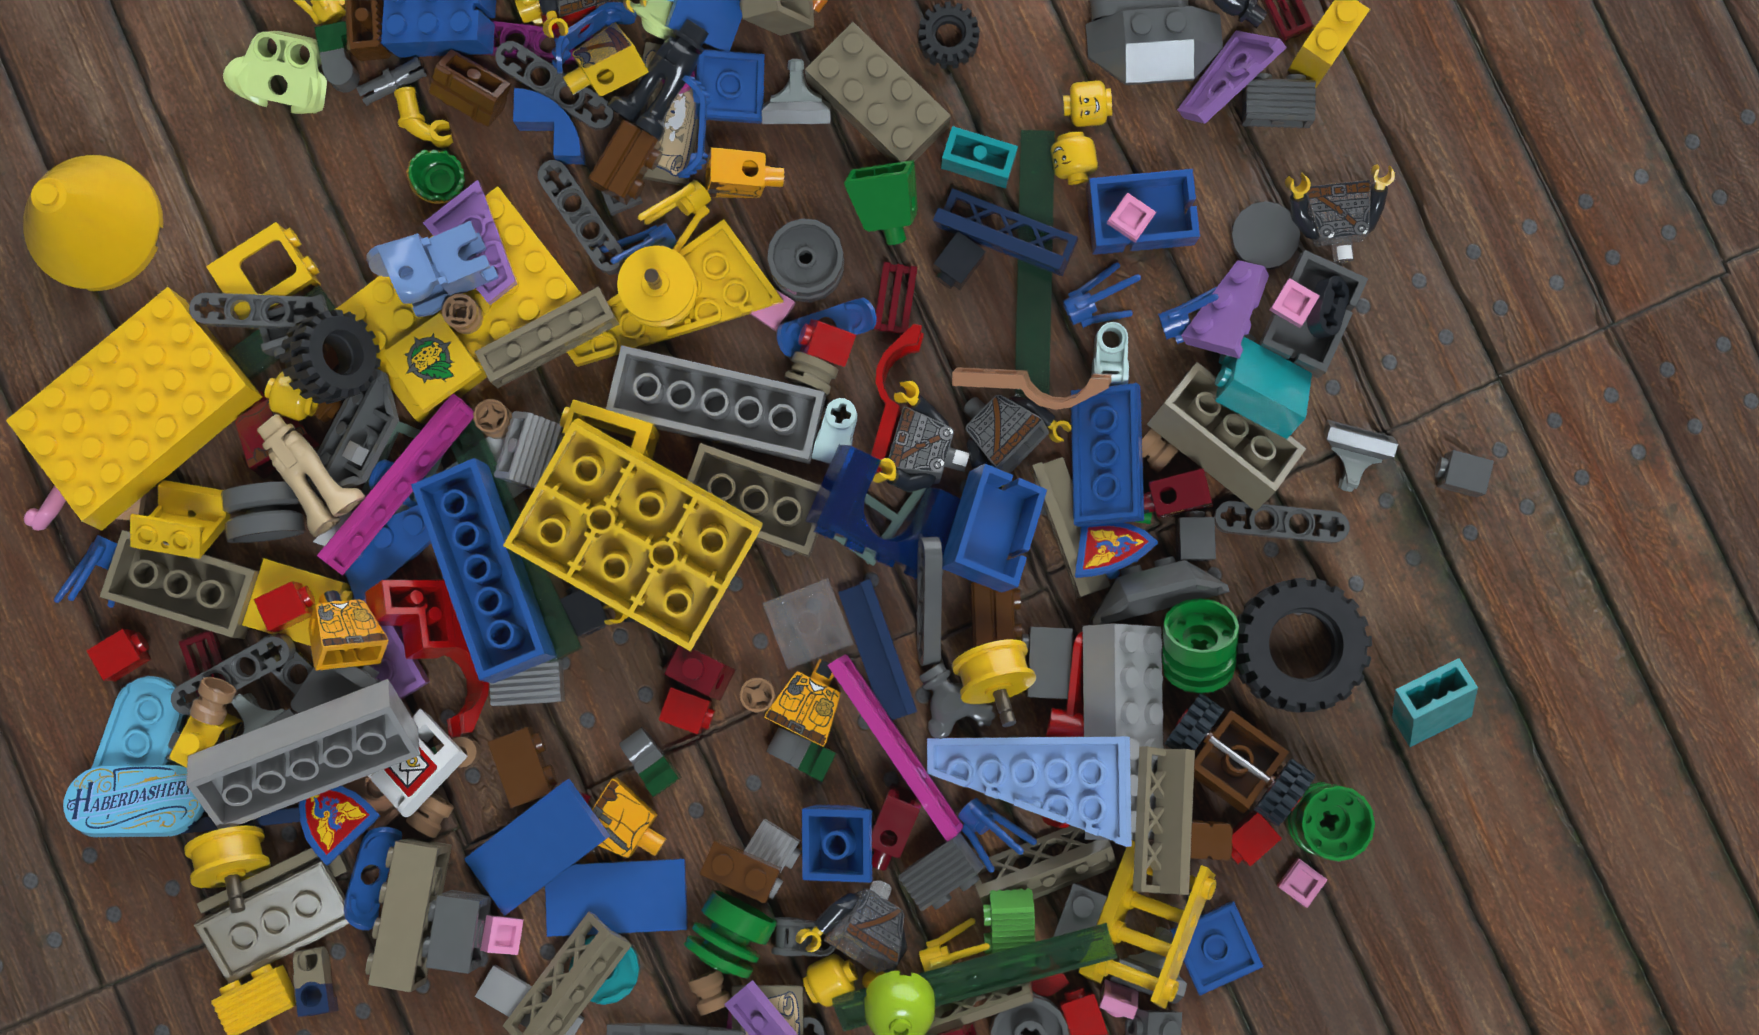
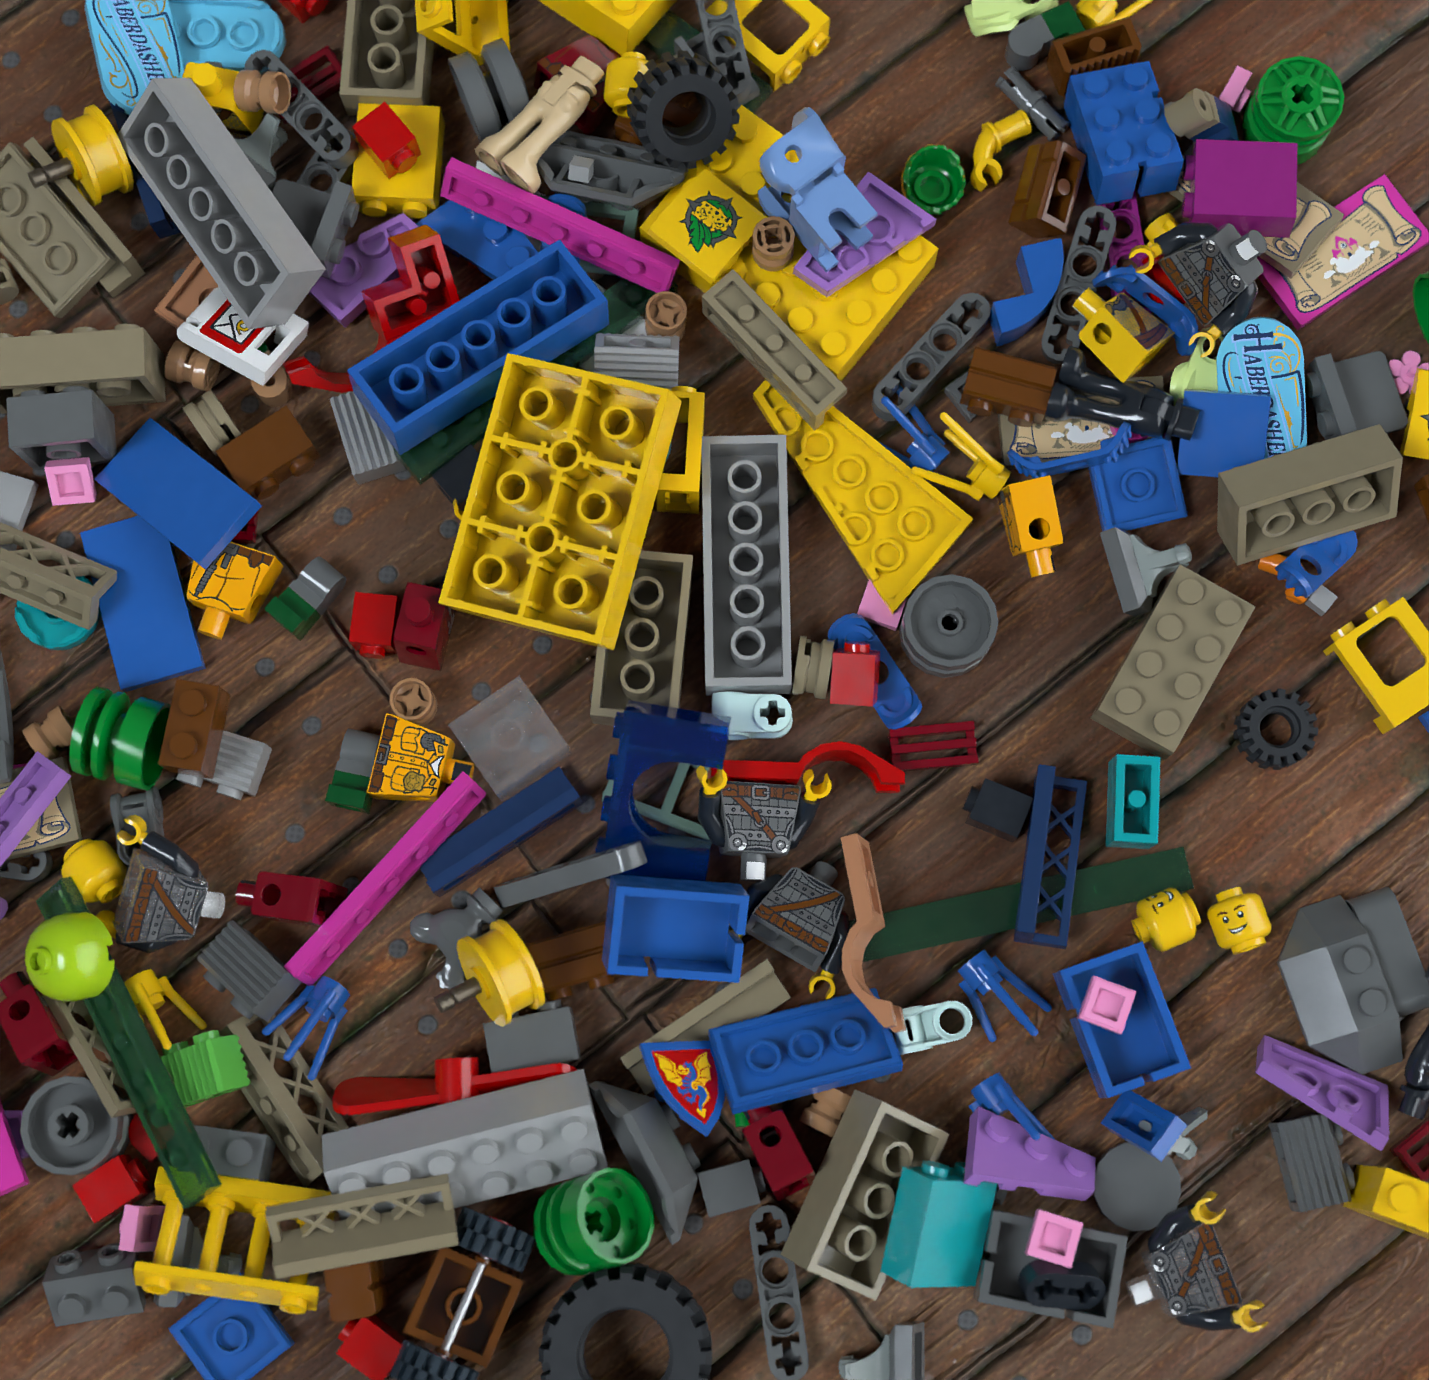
camera: 75 degrees right, 5 degrees down
(334, 821) = (157, 261): shield -> none
(344, 634) = (369, 210): light orange torso -> none
(362, 899) = (75, 312): blue piece -> none
(484, 806) = (212, 421): none -> dark tan wheel
(657, 286) = (867, 458): yellow wheel -> none
(837, 843) = (254, 834): blue slope -> none
(884, 198) = (1049, 700): green torso -> none
(1056, 777) = (386, 1076): light blue wing -> none
(1226, 211) = (1152, 1126): none -> blue piece

